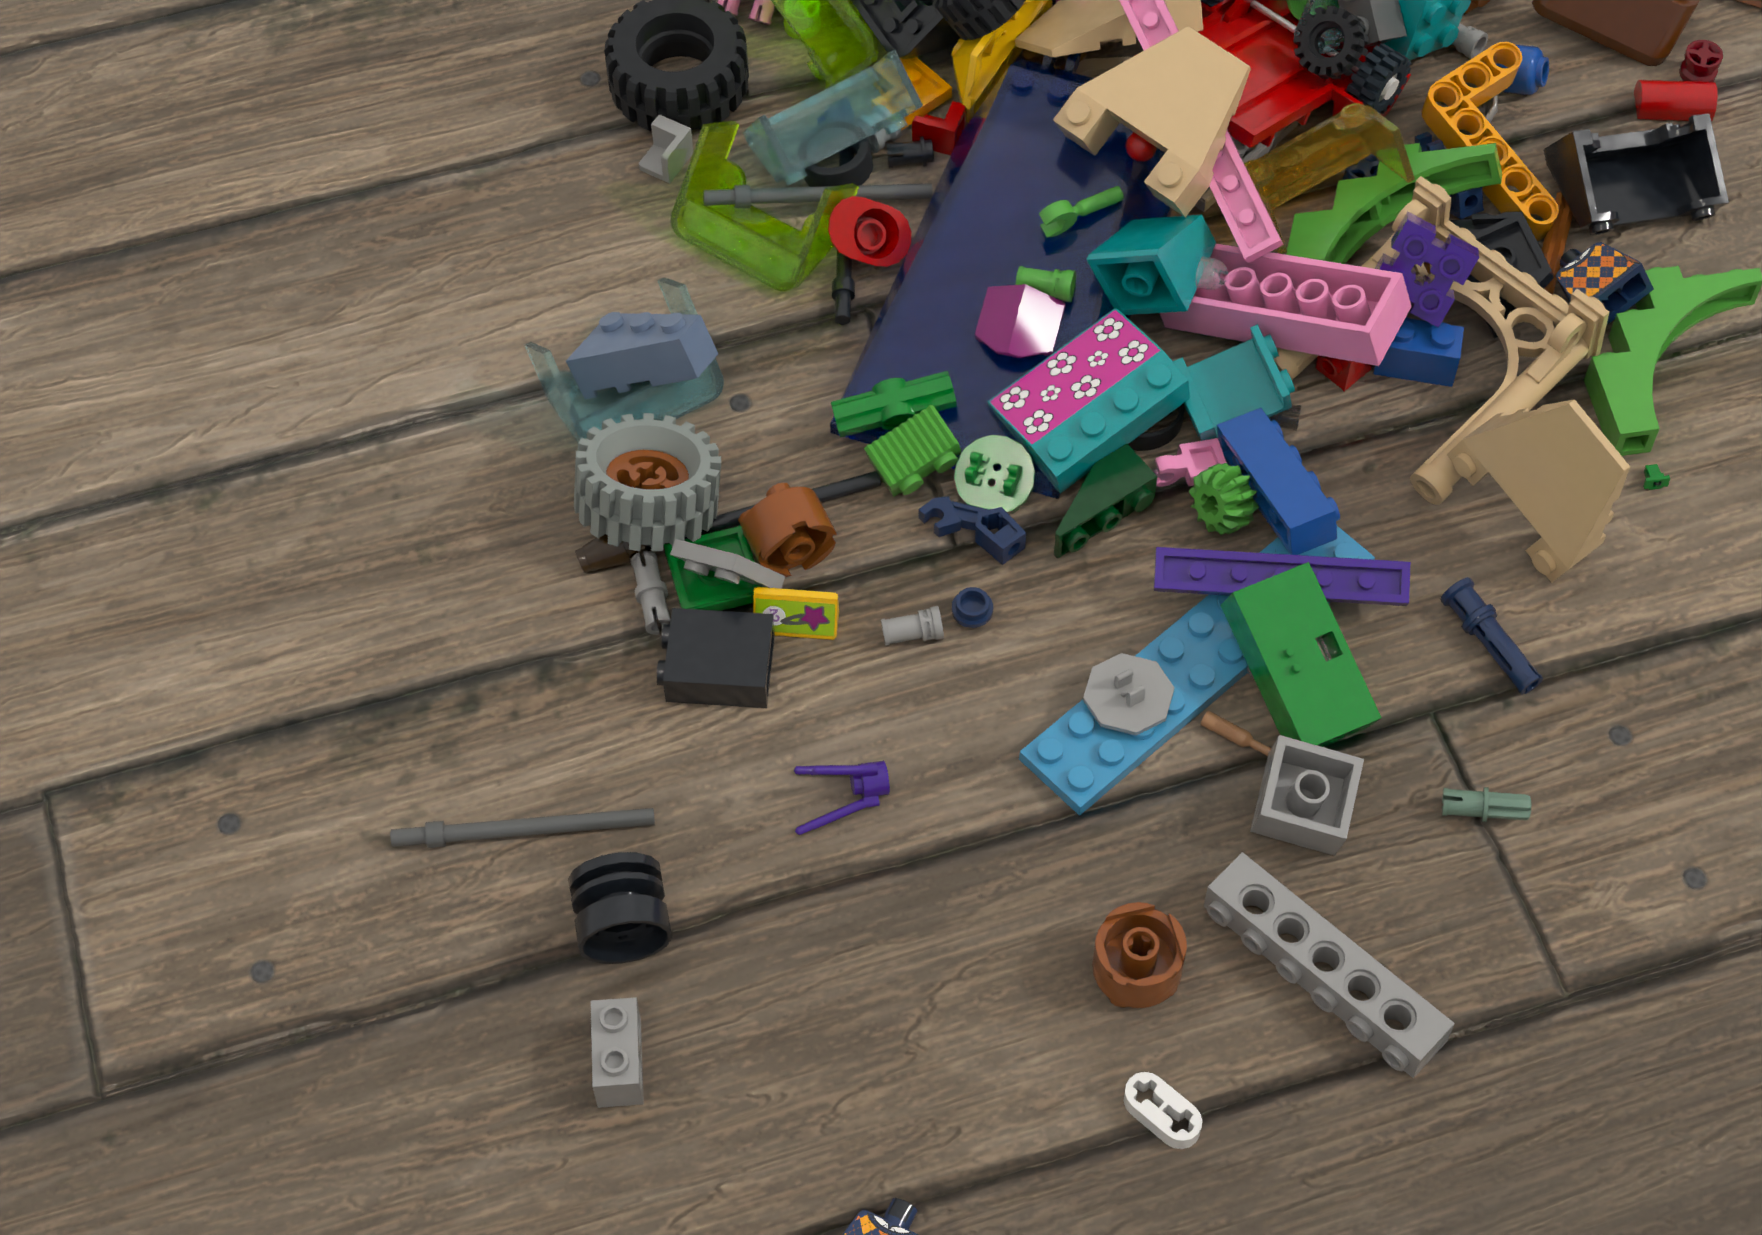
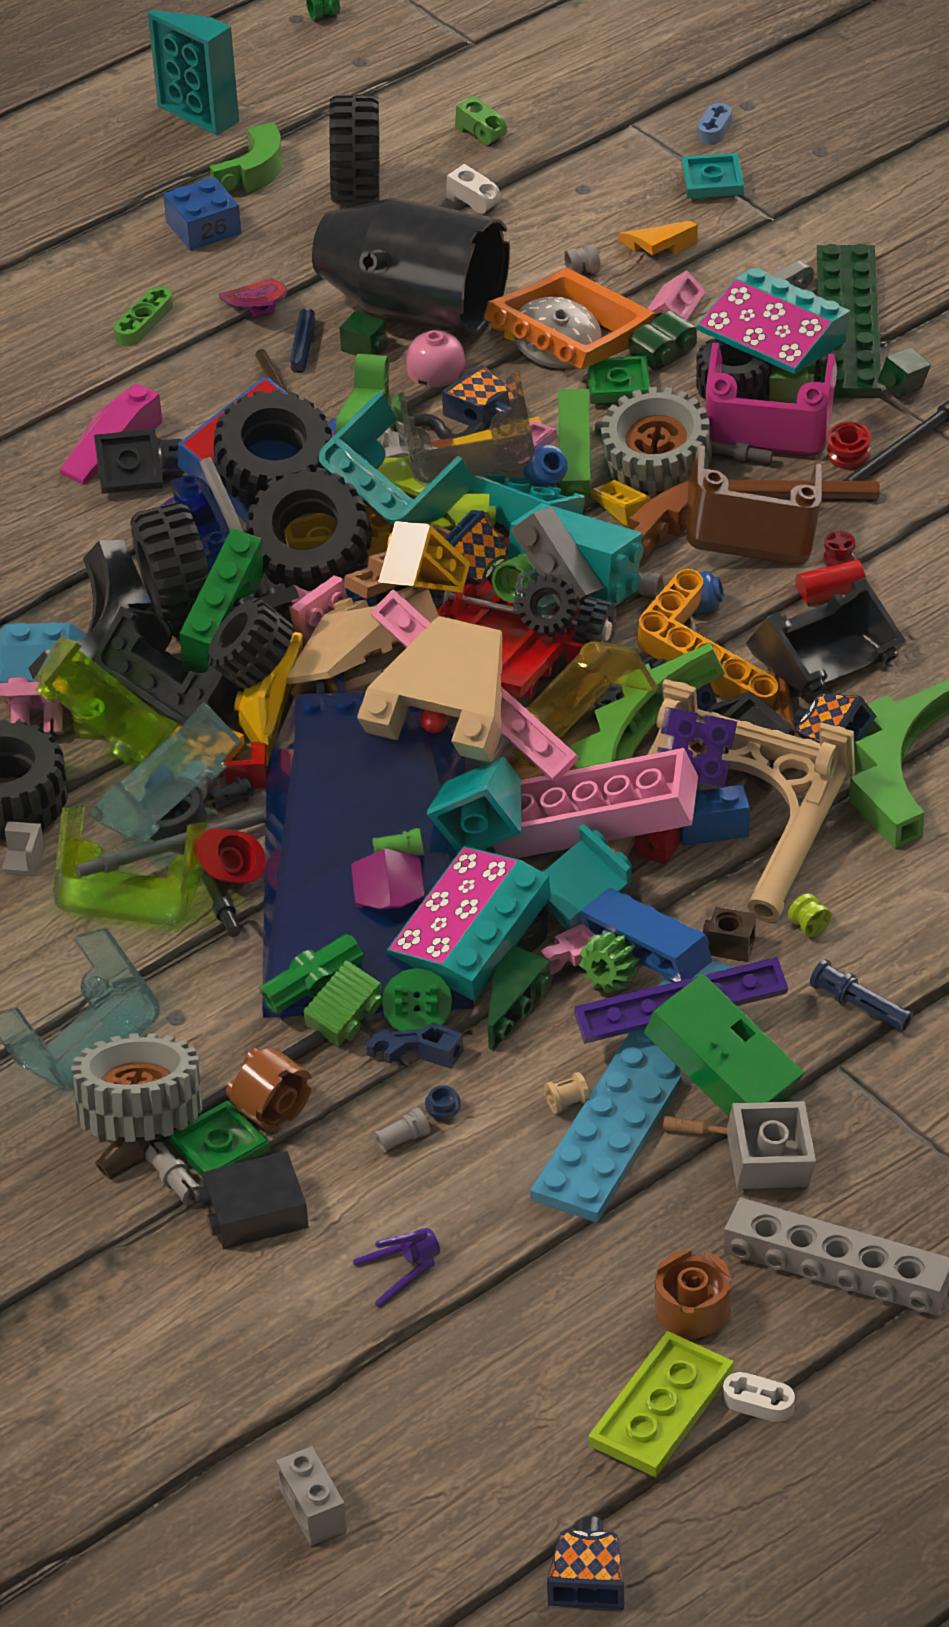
camera: 20 degrees left, 15 degrees down
(436, 833) = (83, 1397): dark grey bar -> none
(619, 908) = (266, 1392): black wheel -> none
(641, 349) = (84, 992): sand blue wedge -> none
(726, 565) = (231, 1124): light grey wing -> none
(799, 612) = (307, 1146): slope -> none
(1048, 1079) = (661, 1404): none -> lime plate
(1061, 215) = (390, 790): bright green piece -> none
(1110, 642) = (566, 1092): none -> tan bush
(1128, 694) = (598, 1121): light grey piece -> none
(1209, 272) = (528, 799): clear hinge -> none
(1376, 521) = (731, 934): none -> dark brown brick
(1476, 512) = (810, 915): none -> lime wheel
(1486, 804) = (908, 1112): sand green axle -> none
(1555, 473) = (862, 853): tan wedge -> none
(1654, 478) = (934, 852): green piece -> none

